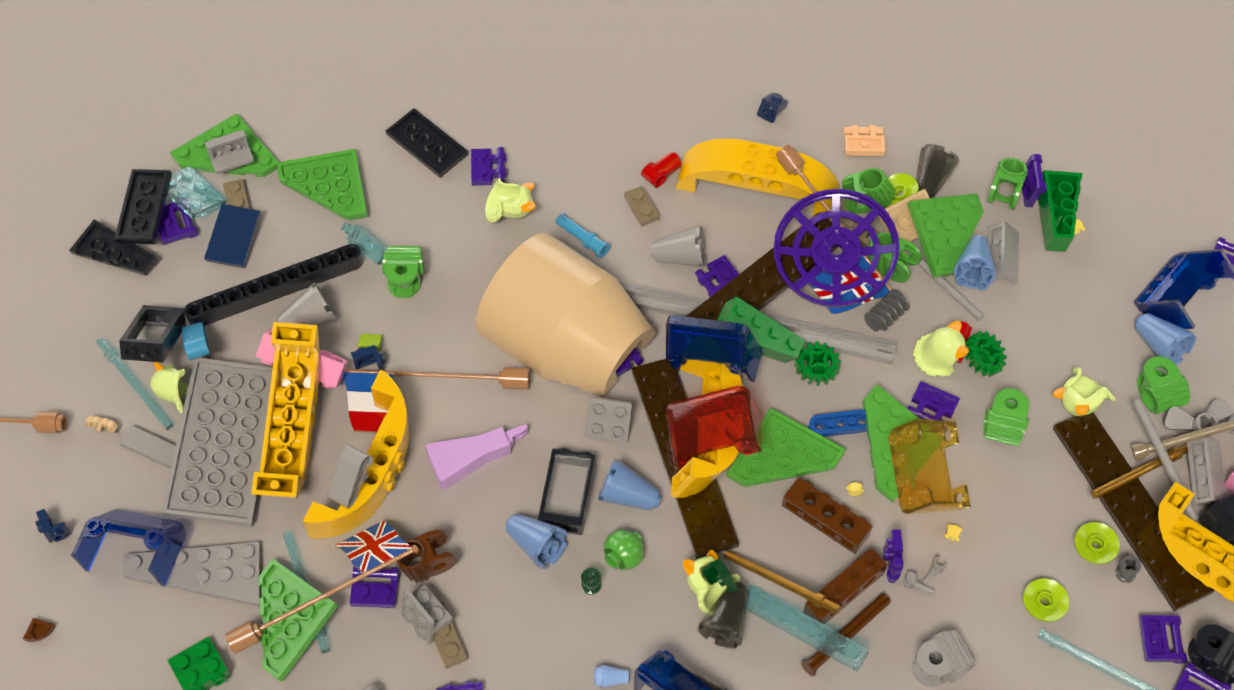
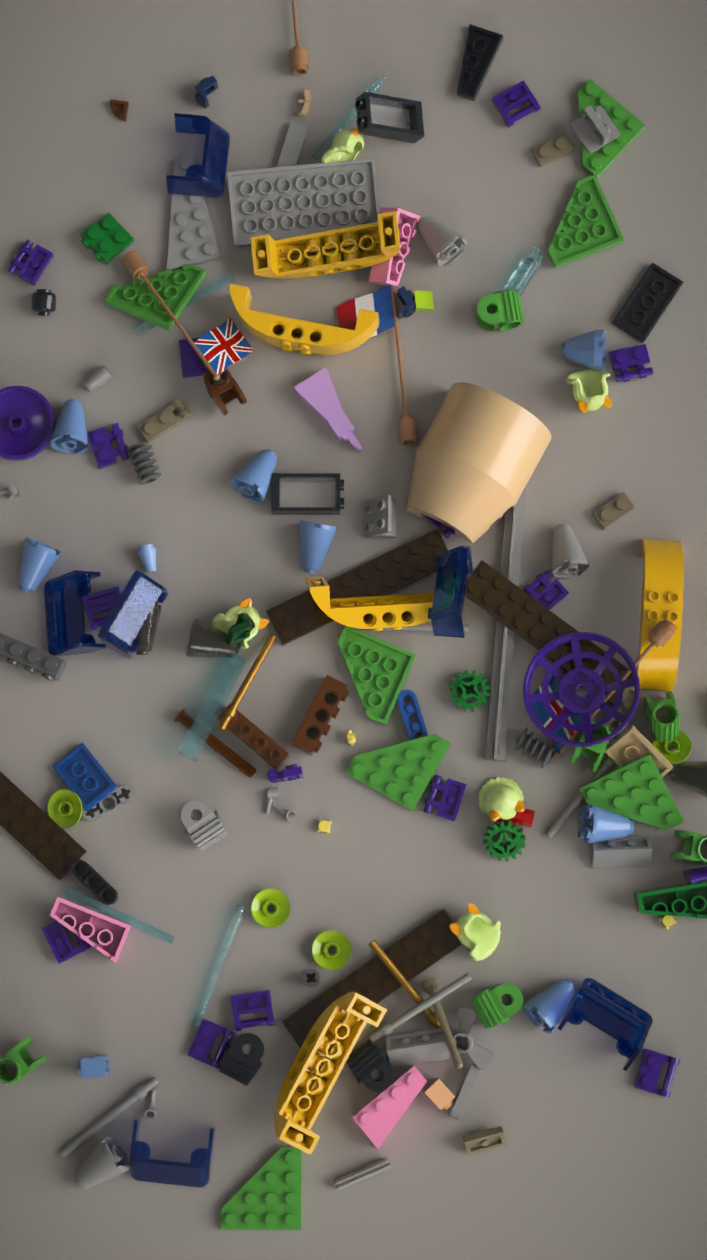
camera: 80 degrees right, 20 degrees up
(143, 206) = (519, 72): black tile -> none
(193, 193) = (547, 109): clear light blue plate -> none
(195, 341) = (391, 154): dark azure beam -> none
(232, 236) = (509, 157): dark blue tile -> none
(265, 285) = (463, 197): black beam -> none
(349, 476) = (268, 309): light grey piece -> none
(424, 613) = (177, 400): light grey bracket -> none
(466, 195) = (587, 349): none -> medium blue cone
(493, 661) = (143, 463): none -> dark grey piece
(587, 576) = (223, 524): clear green bush -> none
(589, 239) = (564, 468): dark azure pin -> none
(623, 548) = (260, 550): bright green plant -> none
(657, 172) = (652, 519): red piece -> none
(714, 423) = (369, 603): clear red windscreen -> none
(772, 337) = (480, 627): green wedge -> none
(922, 467) = (373, 794): clear yellow windscreen -> none
(1005, 419) = (431, 863): bright green piece -> none

